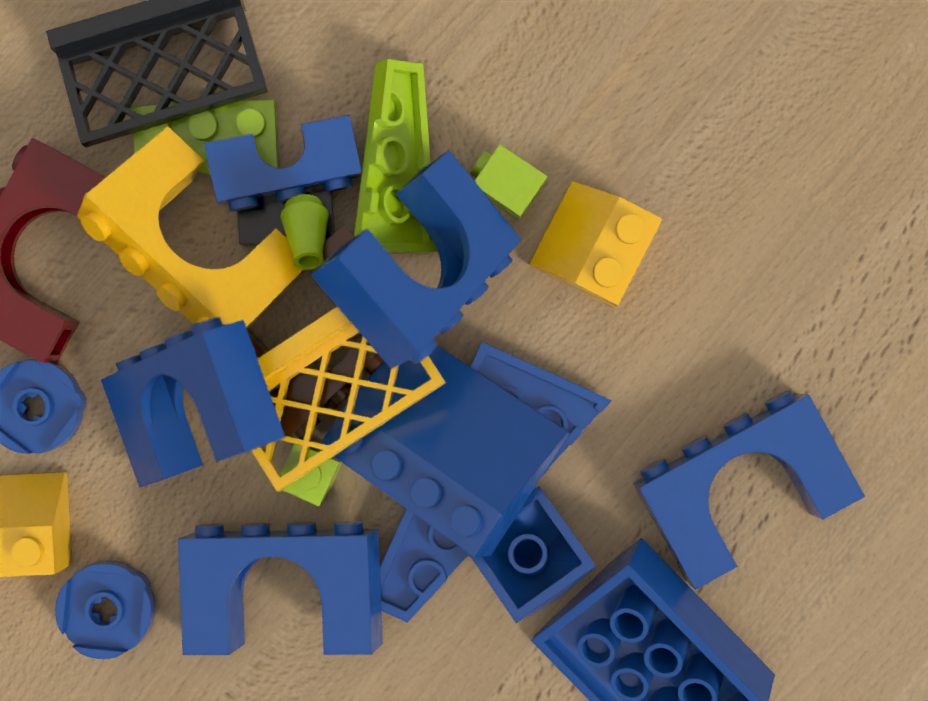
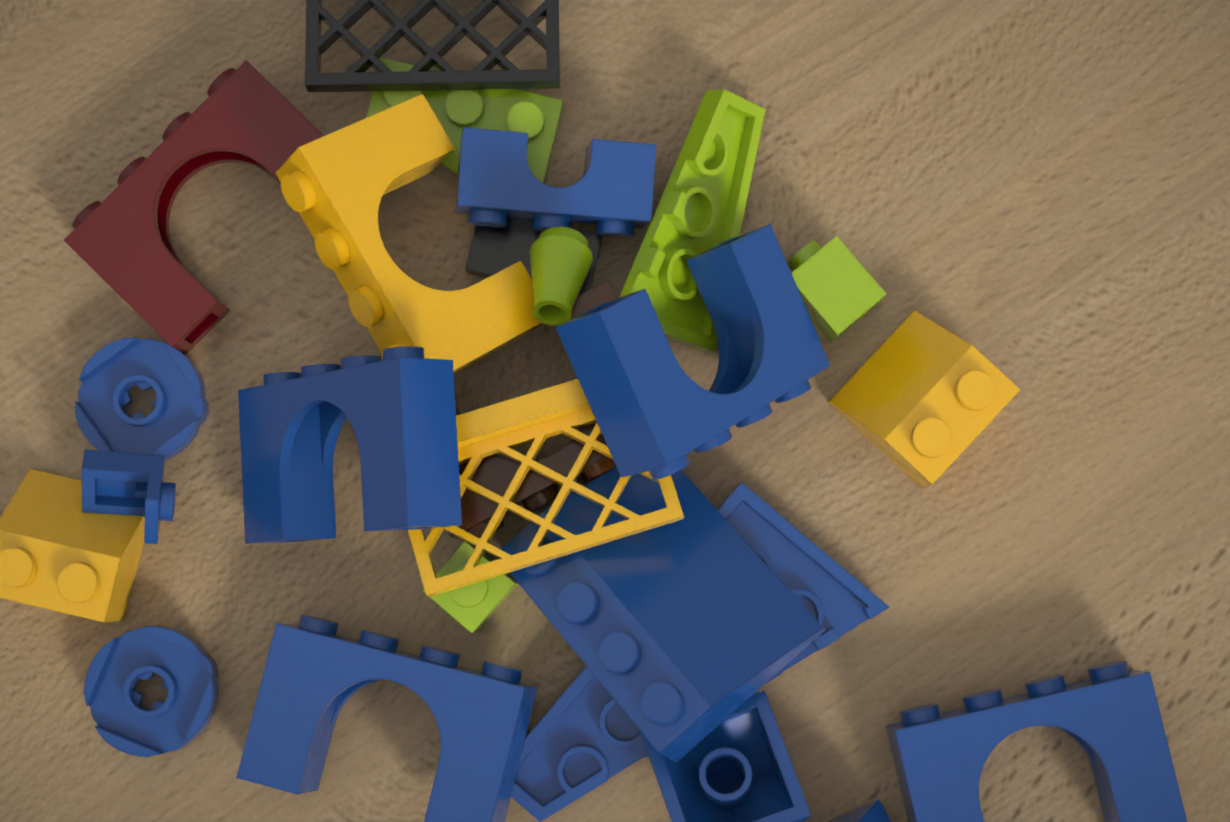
camera: 20 degrees right, 5 degrees down
(43, 471) = (128, 486): none -> blue bracket

